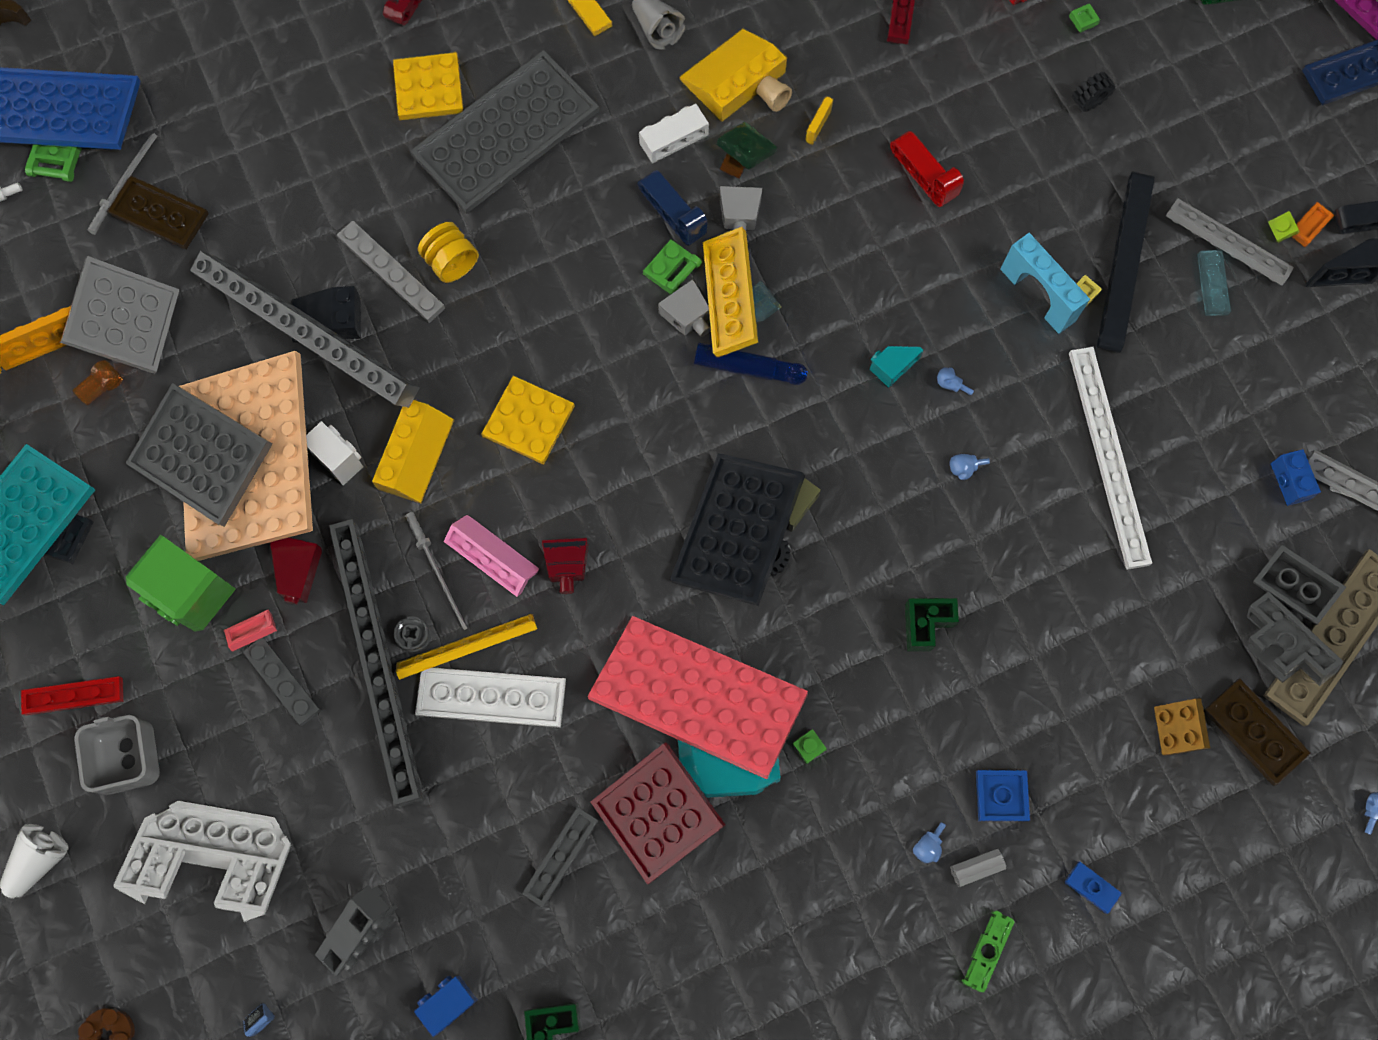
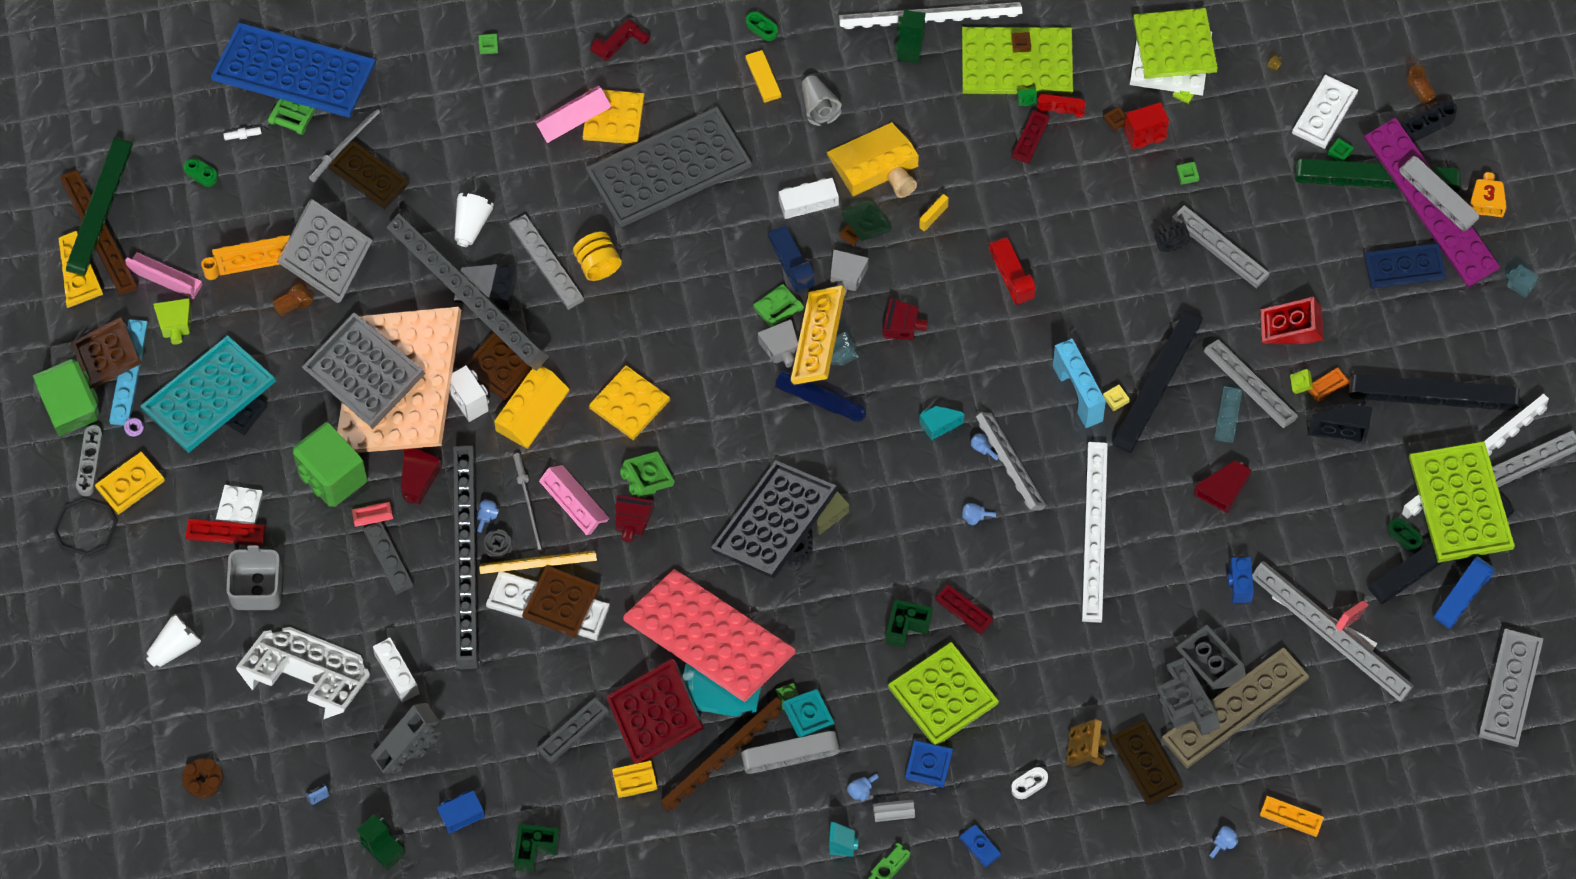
camera: 15 degrees right, 10 degrees down
(84, 656) = (239, 505): none -> white plate
(265, 32) = (488, 44): none -> bright green plate
(288, 238) = (470, 218): none -> white cone
(322, 830) = (396, 670): none -> white brick
(361, 413) = (498, 367): none -> reddish brown plate
(381, 92) = (573, 114): none -> bright pink panel
(388, 596) = (486, 512): none -> medium blue piece
(506, 692) = (561, 601): none -> reddish brown plate
(570, 505) = (646, 474): none -> bright green plate
(652, 903) = (634, 779): none -> yellow plate
(747, 856) = (718, 759): none -> reddish brown plate
(819, 253) = (902, 321): none -> dark red torso
(832, 821) = (790, 752): none -> light grey beam
(842, 767) = (808, 713): none -> teal plate
(929, 927) = (842, 840): none -> teal slope
(988, 587) = (964, 609): none -> dark red plate
(994, 701) = (943, 694): none -> lime plate
(995, 399) = (1012, 463): none -> light grey plate
(1128, 793) = (1028, 783): none -> white plate
(1149, 93) = (1221, 247): none -> light grey plate
(1240, 370) = (1224, 486): none -> dark red slope
(1253, 161) = (1292, 323): none -> red slope

